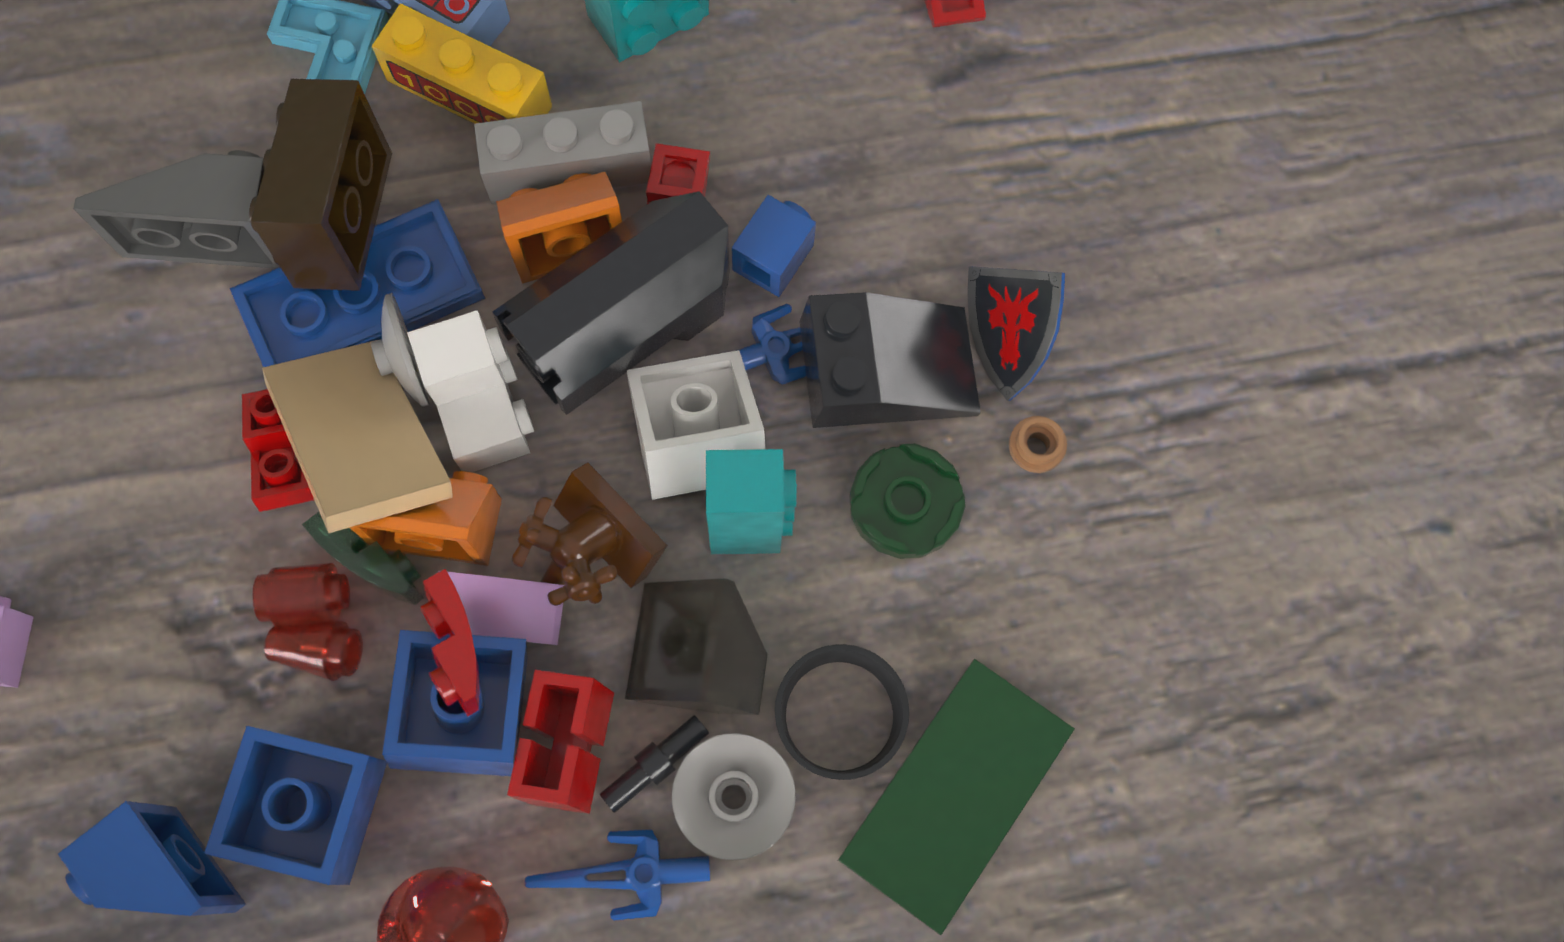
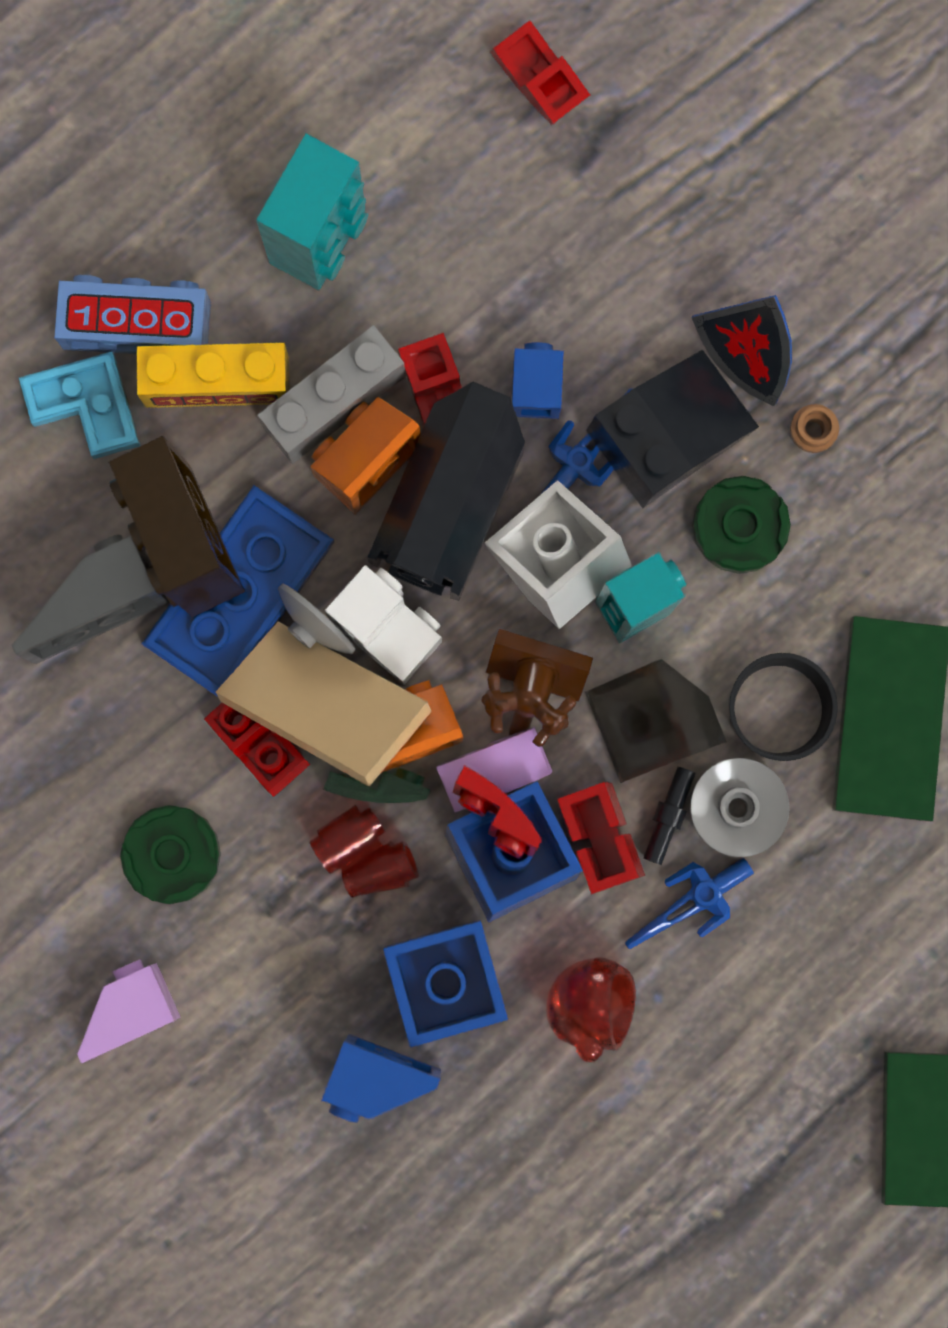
camera: 30 degrees left, 10 degrees up
(119, 512) = (170, 854): none -> dark green tile

